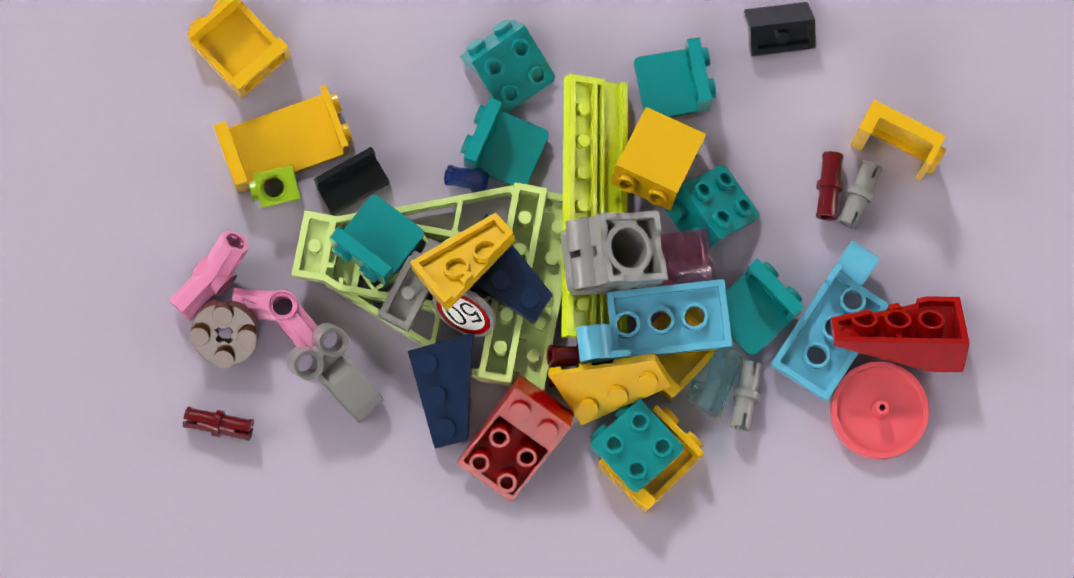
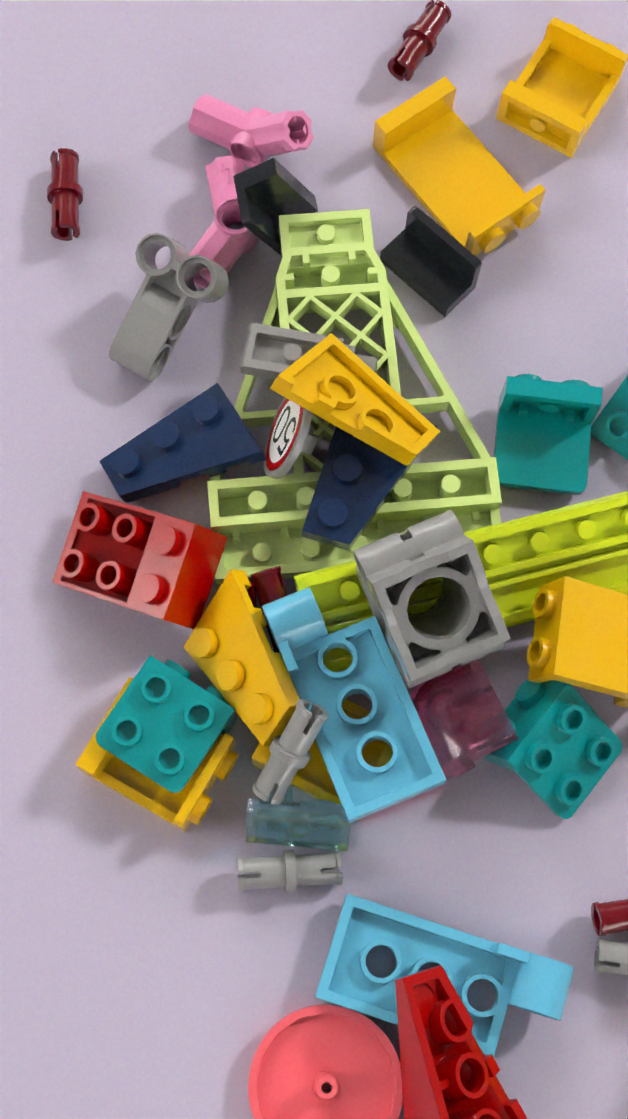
camera: 75 degrees right, 5 degrees down
(166, 133) = (419, 40): none -> dark red pin
(221, 350) = (171, 144): plate -> none
(278, 282) = (267, 193): none -> black panel
(288, 178) = (405, 186): lime brick -> none
(377, 240) = (351, 295): teal bracket -> none
(473, 179) = (483, 408): clear blue pin -> none
(679, 369) = (290, 751): none -> light grey pin
(760, 307) = (425, 852): teal bracket -> none

